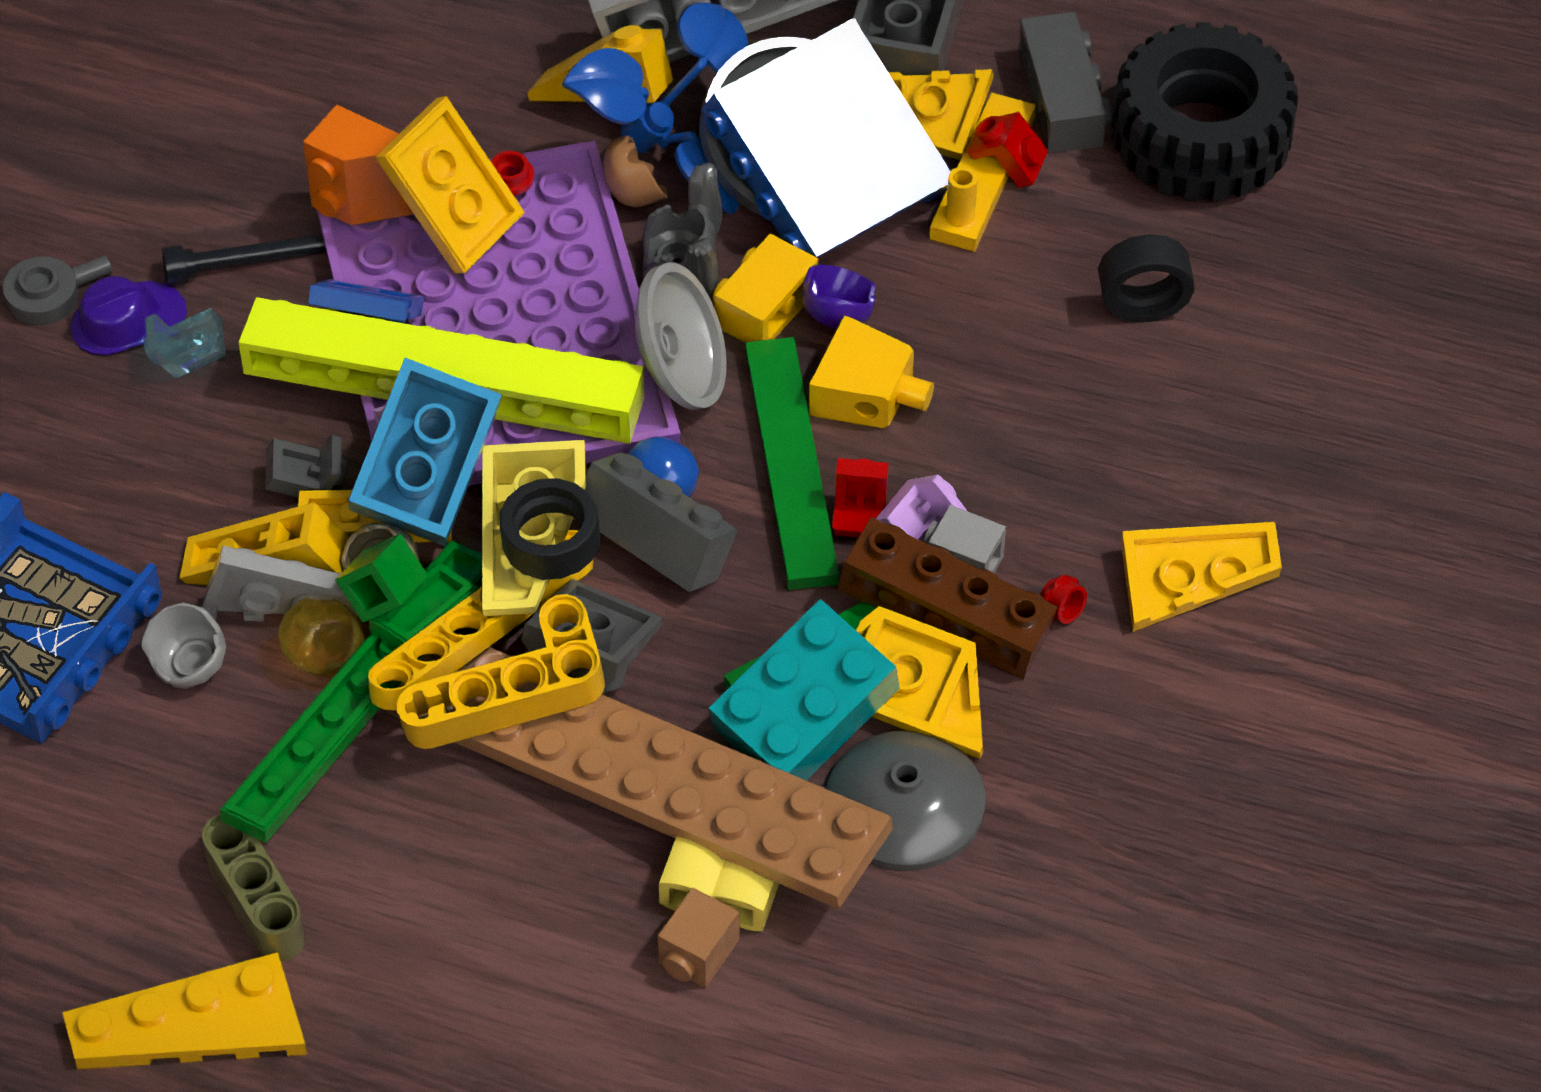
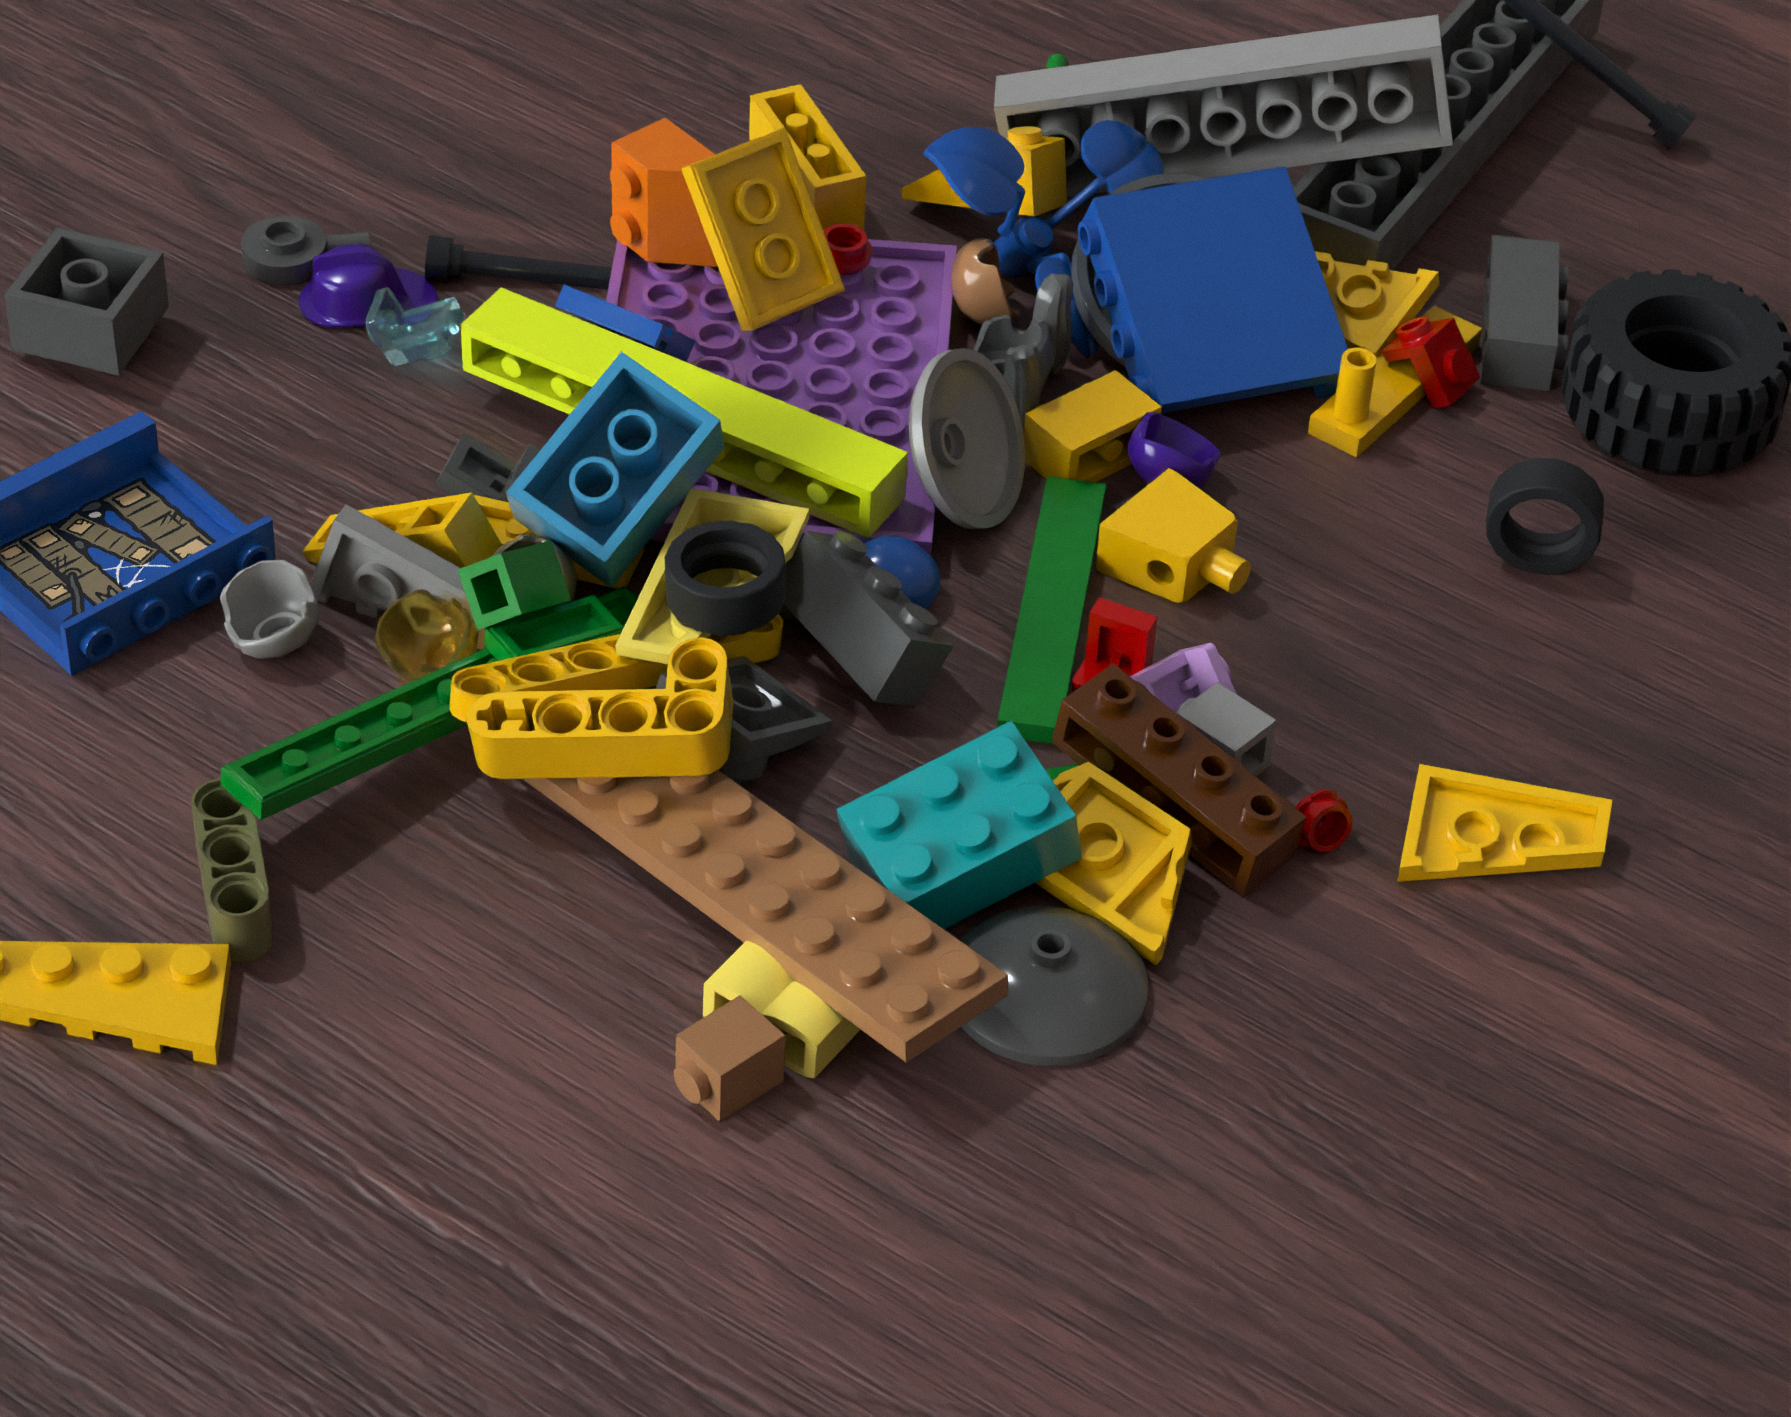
camera: 15 degrees right, 10 degrees down
(423, 69) = (827, 166): none -> yellow brick

